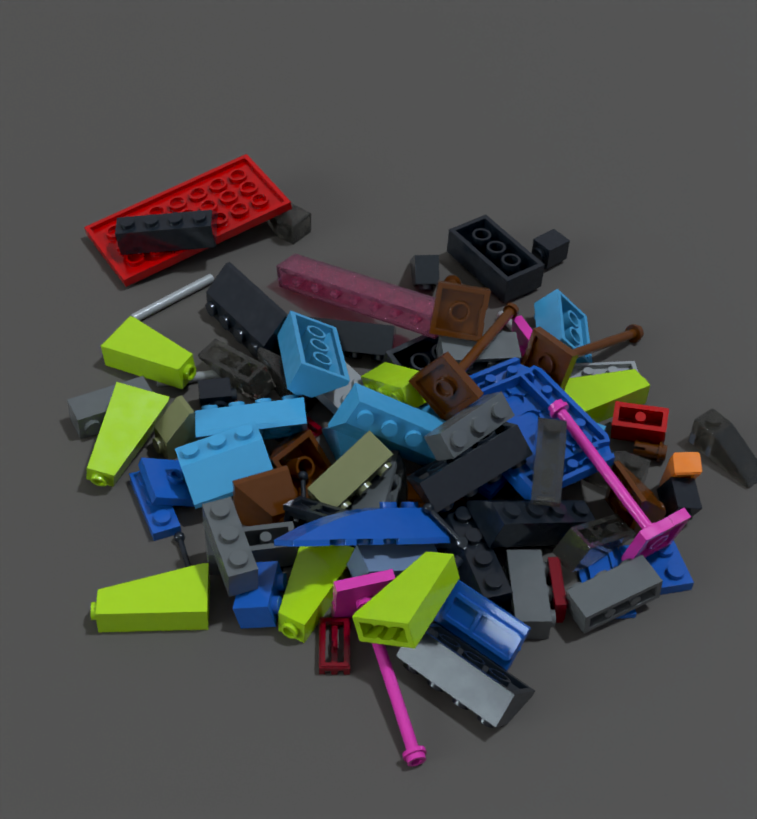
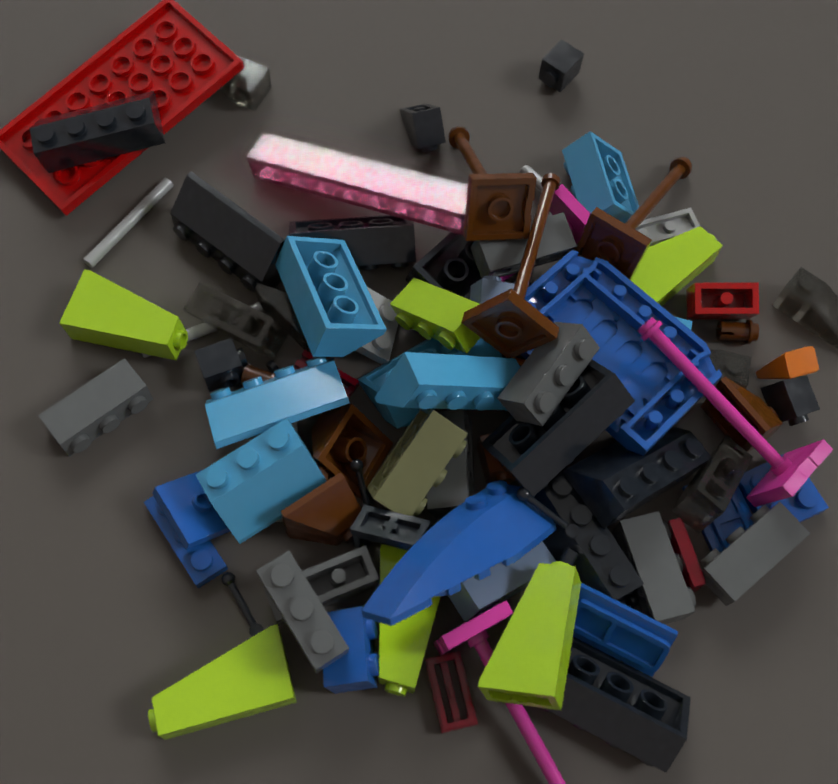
camera: 15 degrees left, 20 degrees up
(124, 431) = (122, 446): lime slope -> none
(174, 428) = (185, 431): olive slope -> none
(495, 258) = (501, 92): black brick -> none
(548, 462) = (655, 408): clear smoke slope -> none

